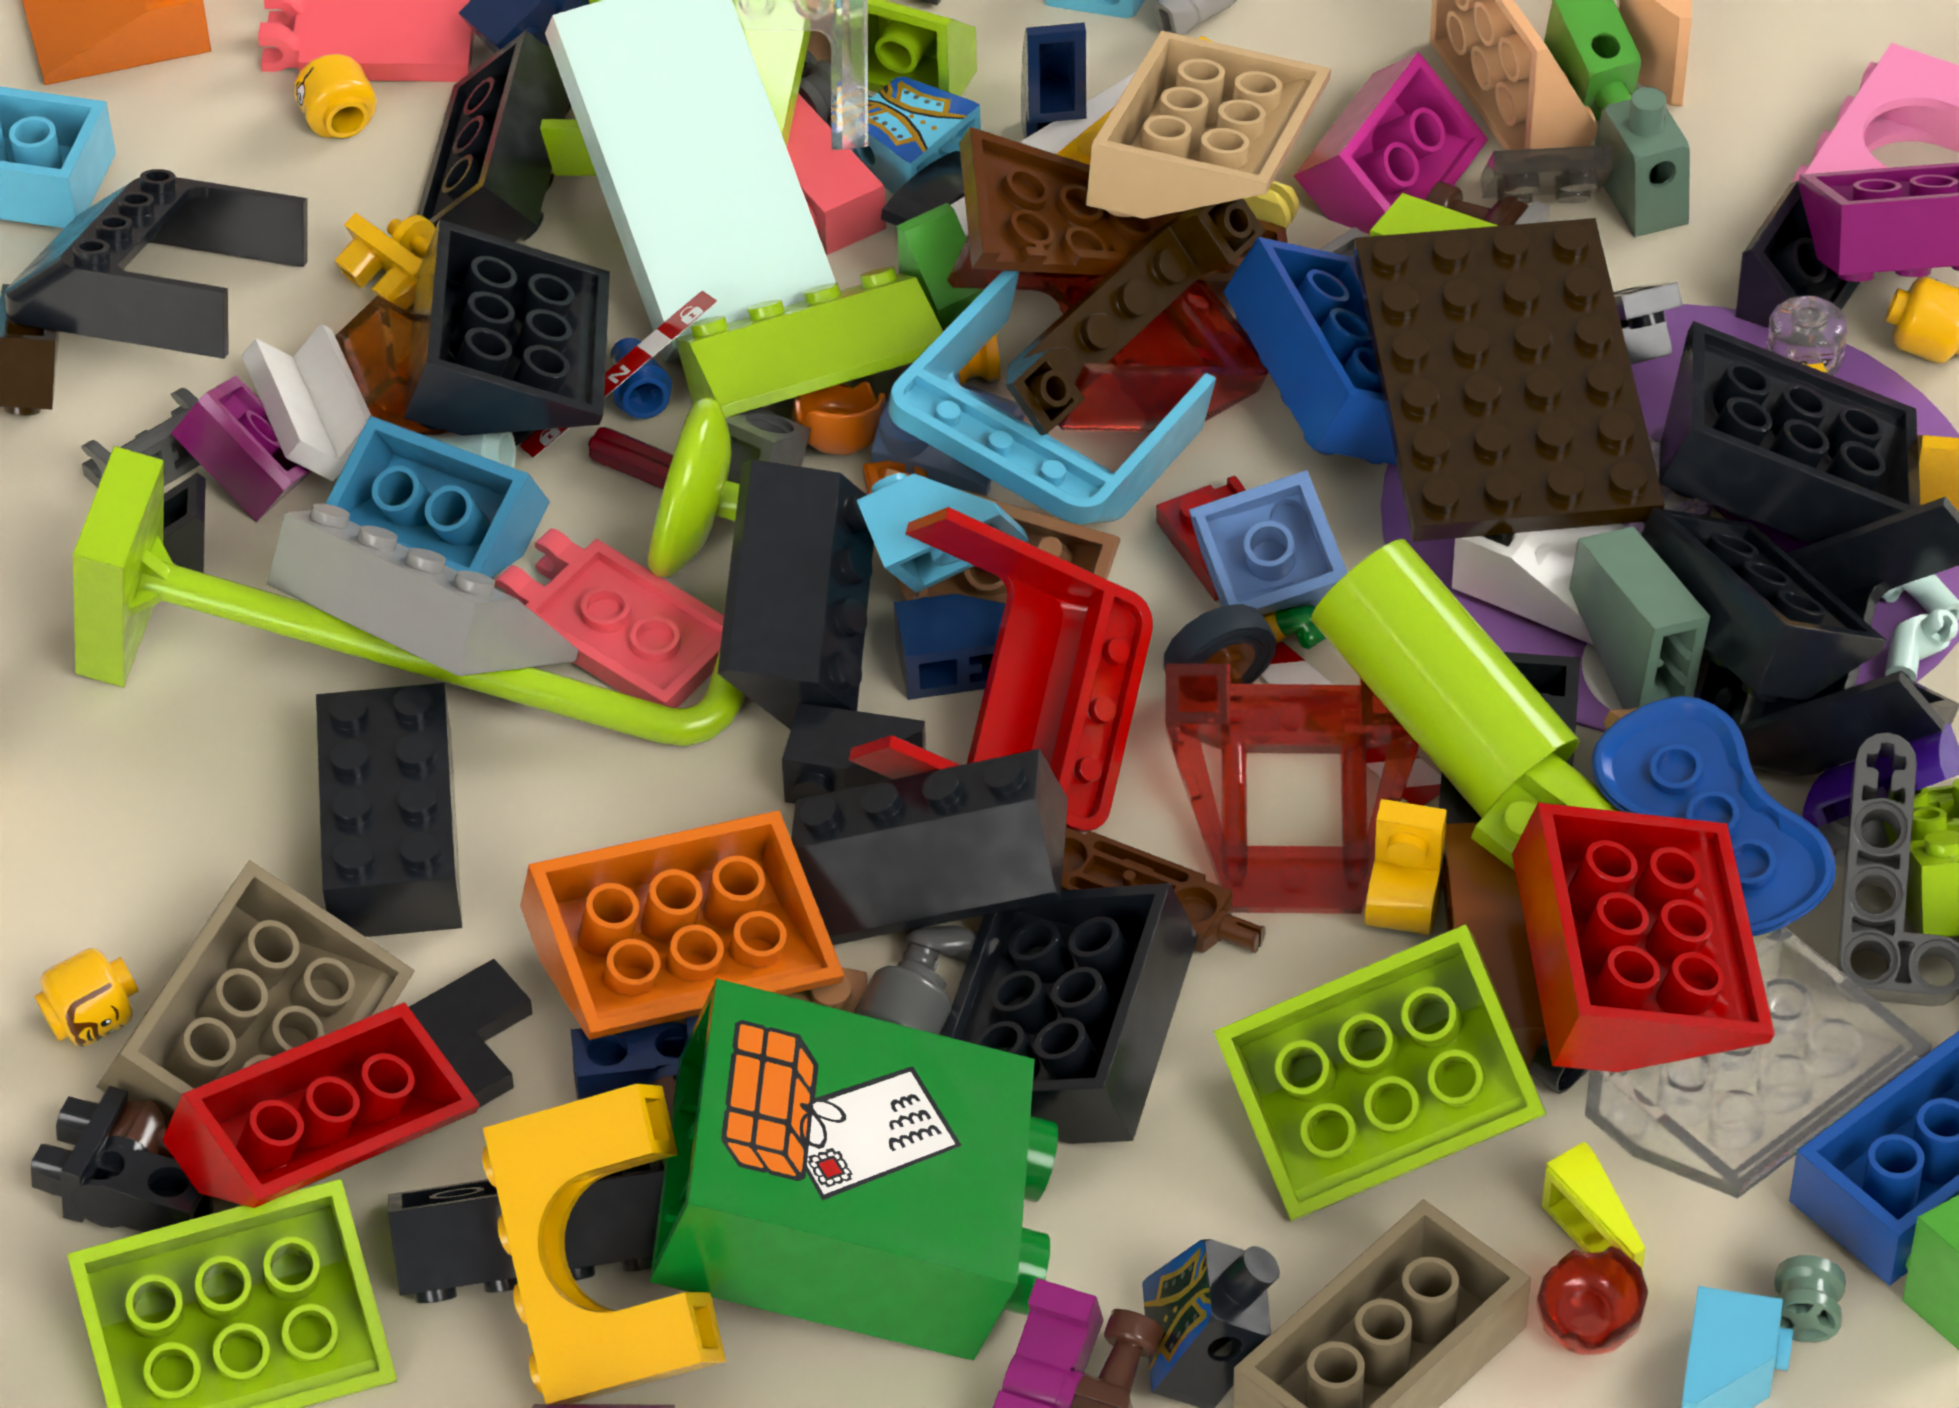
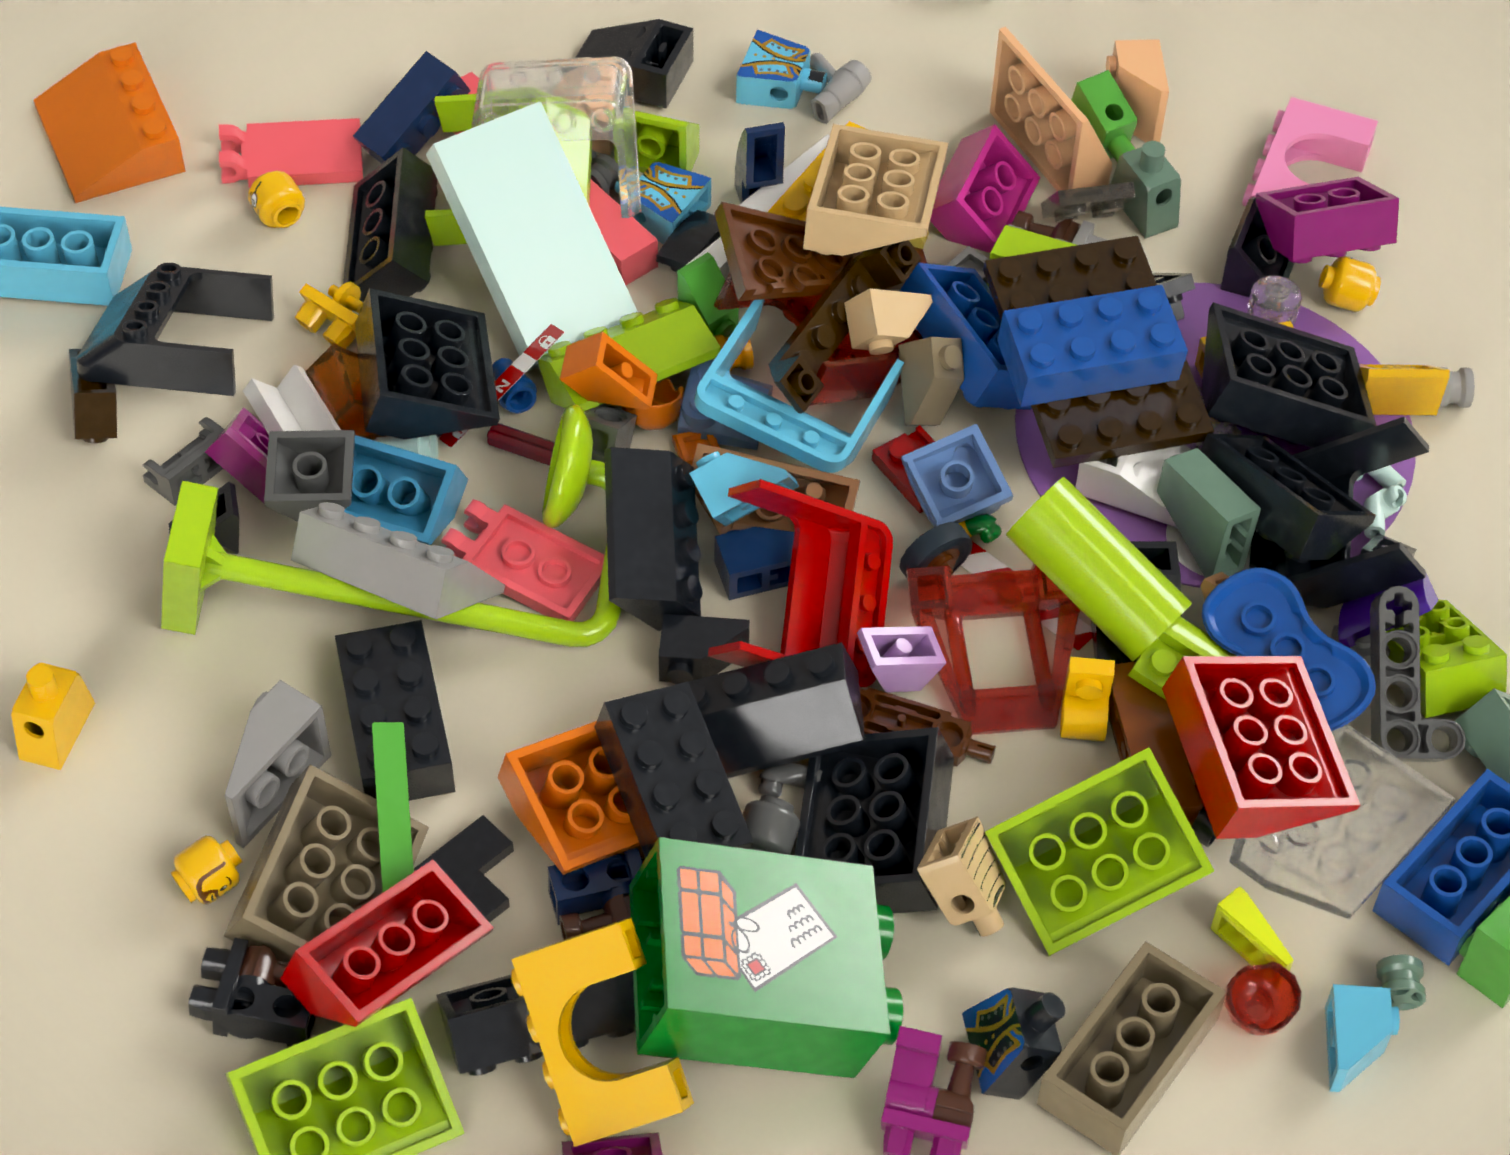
camera: 10 degrees left, 5 degrees up
(197, 845) = (278, 744): none -> light grey slope
(311, 459) = (308, 470): none -> dark grey slope
(361, 916) = (392, 802): none -> bright green sticker
(761, 896) = (670, 770): none -> black brick
(770, 361) = (608, 373): none -> orange slope
(1137, 787) = (902, 656): none -> lavender slope
(1176, 1094) = (965, 876): none -> tan torso
(1193, 311) = (884, 318): none -> tan slope
(1254, 406) = (930, 378): none -> dark tan slope
(1489, 365) = (1091, 345): none -> blue brick

